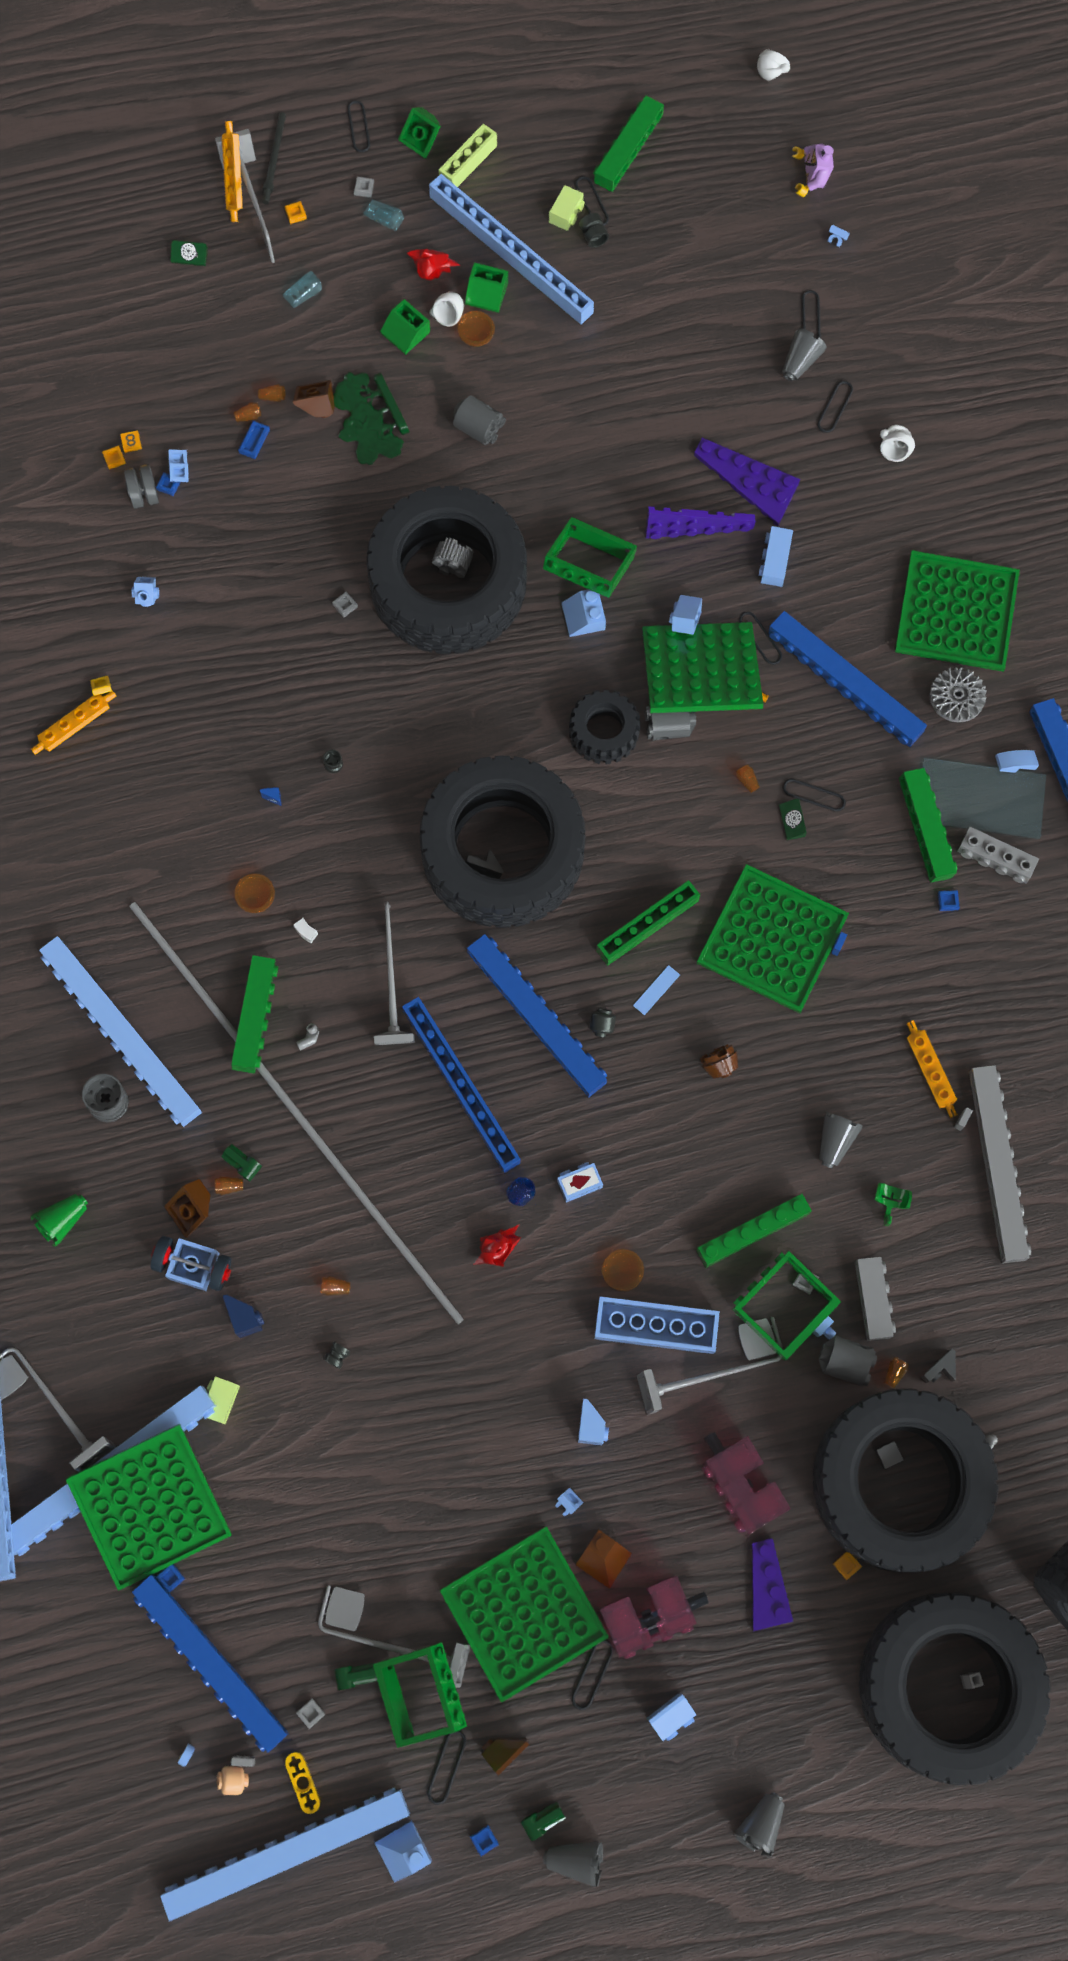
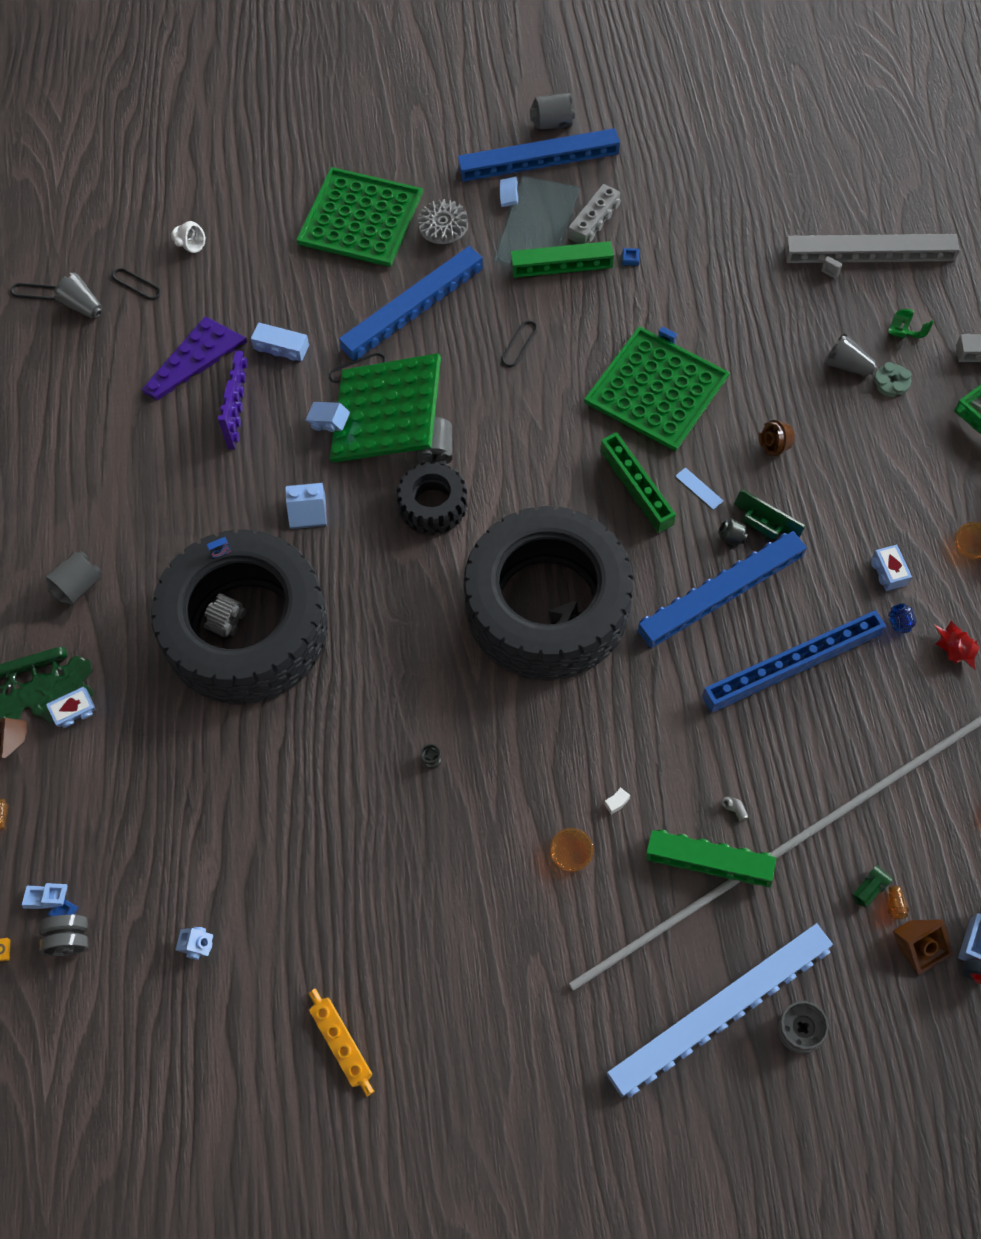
camera: 80 degrees left, 10 degrees down
(58, 1219) = (940, 1091): green cone -> none
(100, 685) = (301, 1005): yellow tile -> none
(113, 457) = (13, 972): light orange tile -> none
(254, 439) = (32, 811): blue tile -> none
(272, 795) = (462, 820): blue slope -> none
(344, 604) = (251, 732): light grey tile -> none
(350, 448) = (71, 707): none -> brick
(394, 1035) = (744, 714): light grey piece -> none
(496, 530) = (219, 547): none -> blue tile
(597, 539) = (236, 478): green window -> none
(621, 1054) = (766, 517): none -> dark green bracket
(747, 778) = (498, 389): clear orange cone -> none
(753, 1230) = (936, 431): green brick -> none
(793, 819) = (542, 359): dark green slope -> none
(829, 1182) = (894, 371): none -> sand green plate
(932, 1069) = (784, 286): light orange plate -> none

